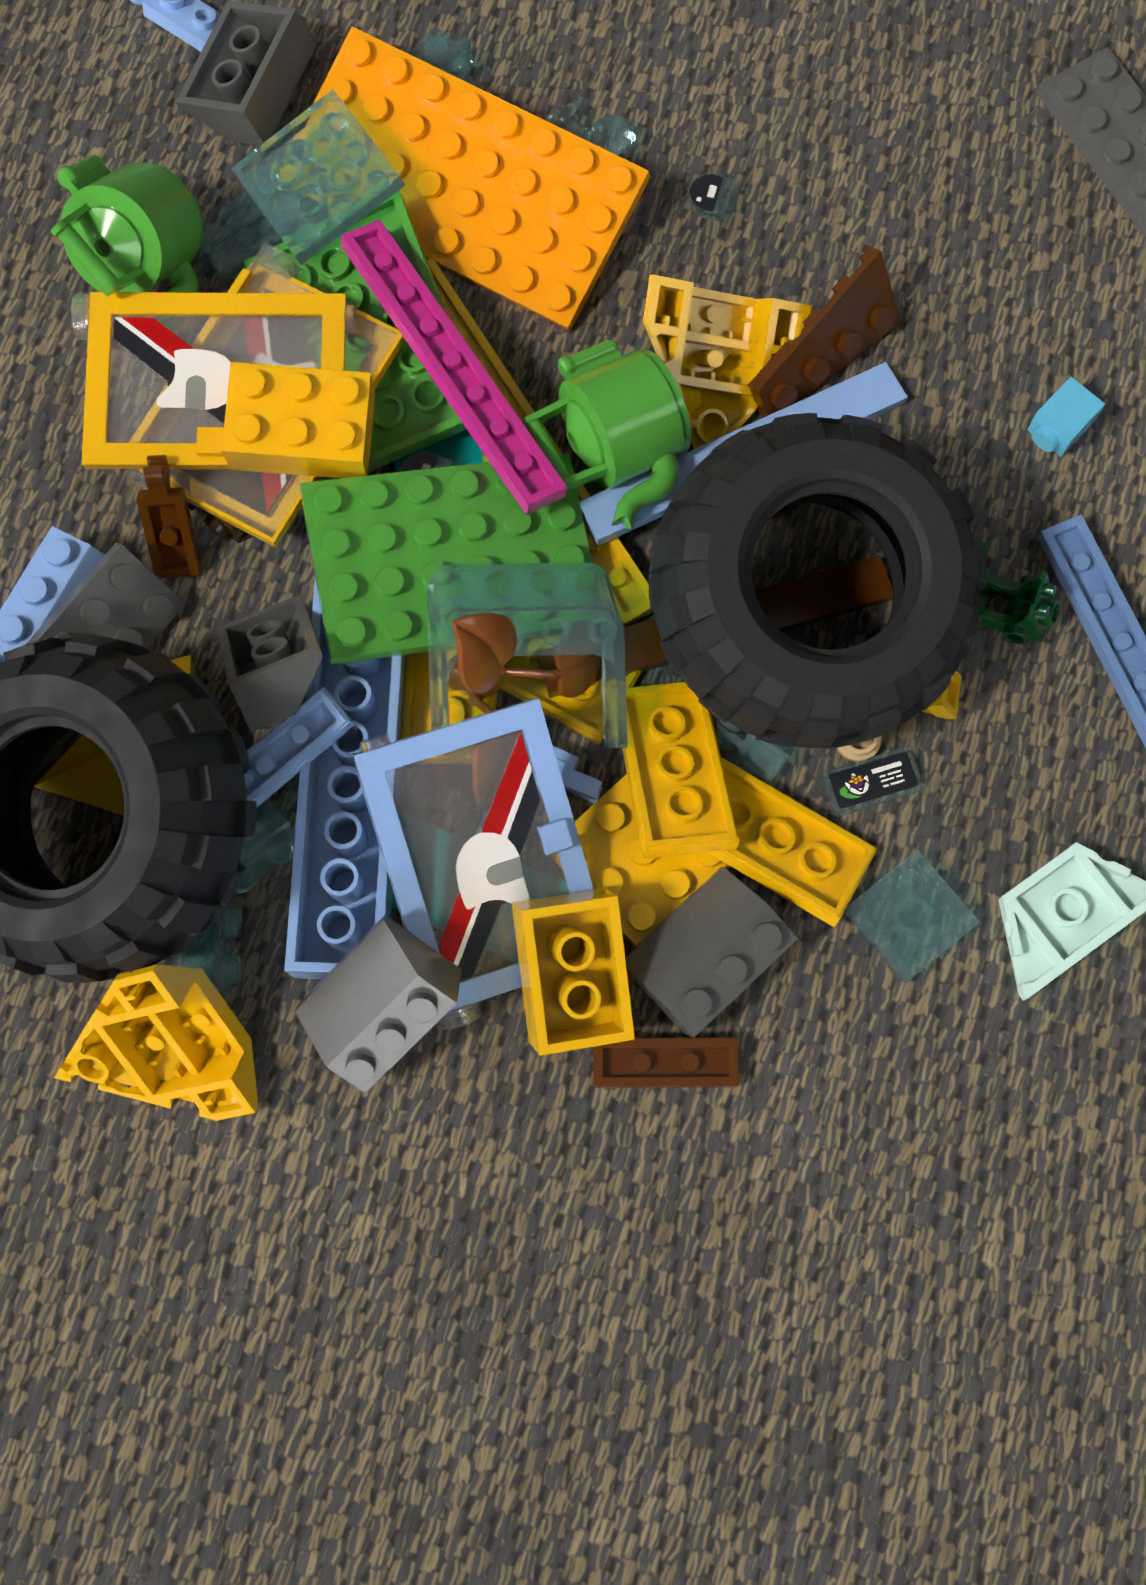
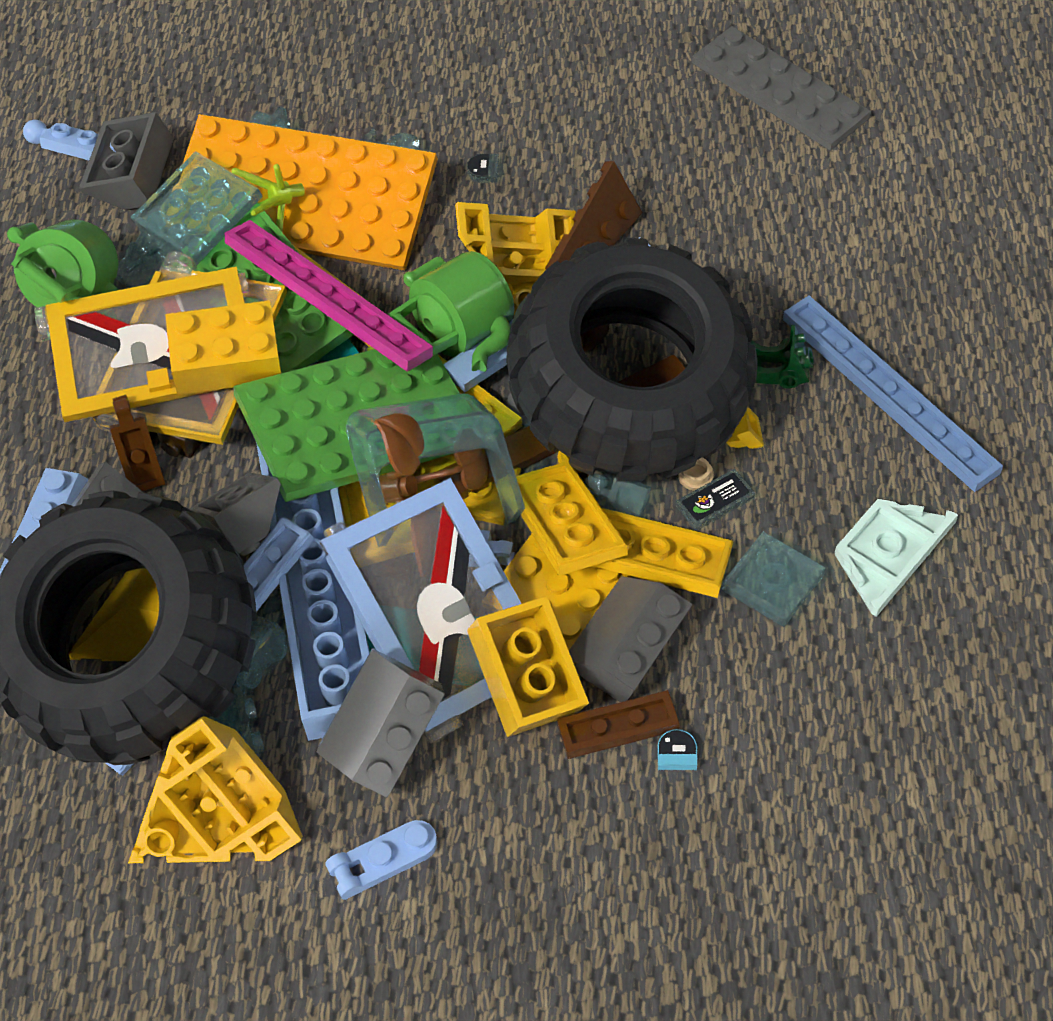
camera: 15 degrees left, 20 degrees down
(347, 1156) = (383, 857): none -> light blue plate
(428, 183) = (278, 193): none -> lime plant
(727, 1115) = (677, 751): none -> tile
(1065, 417) = (777, 240): medium azure brick -> none

